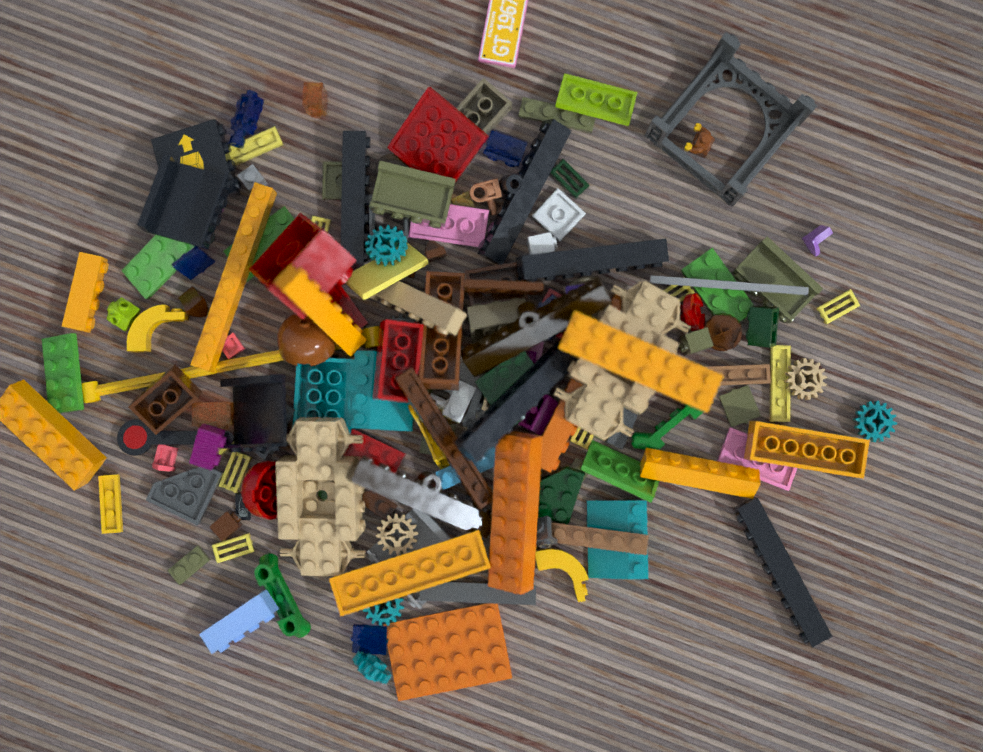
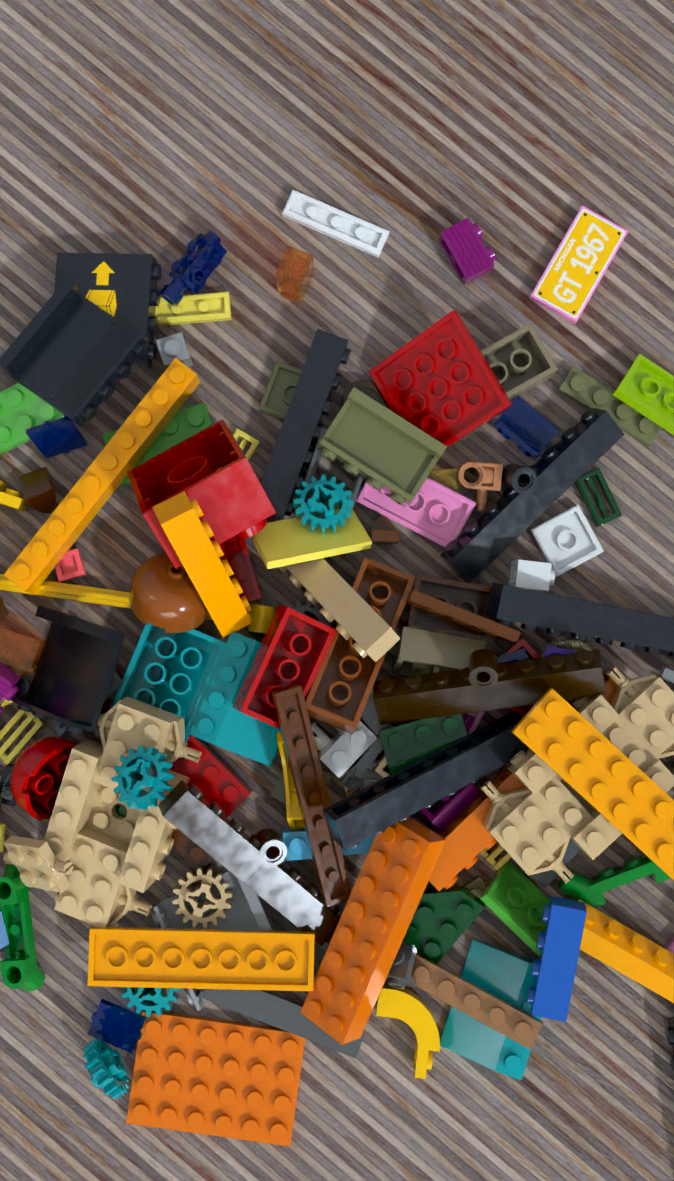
camera: 15 degrees right, 0 degrees up
(279, 547) = (37, 864): none -> tan plate
(329, 462) = (143, 777): none -> teal gear
(330, 56) = (335, 223): none -> white tile
(425, 43) = (467, 251): none -> magenta brick
(642, 488) = (557, 958): none -> blue brick

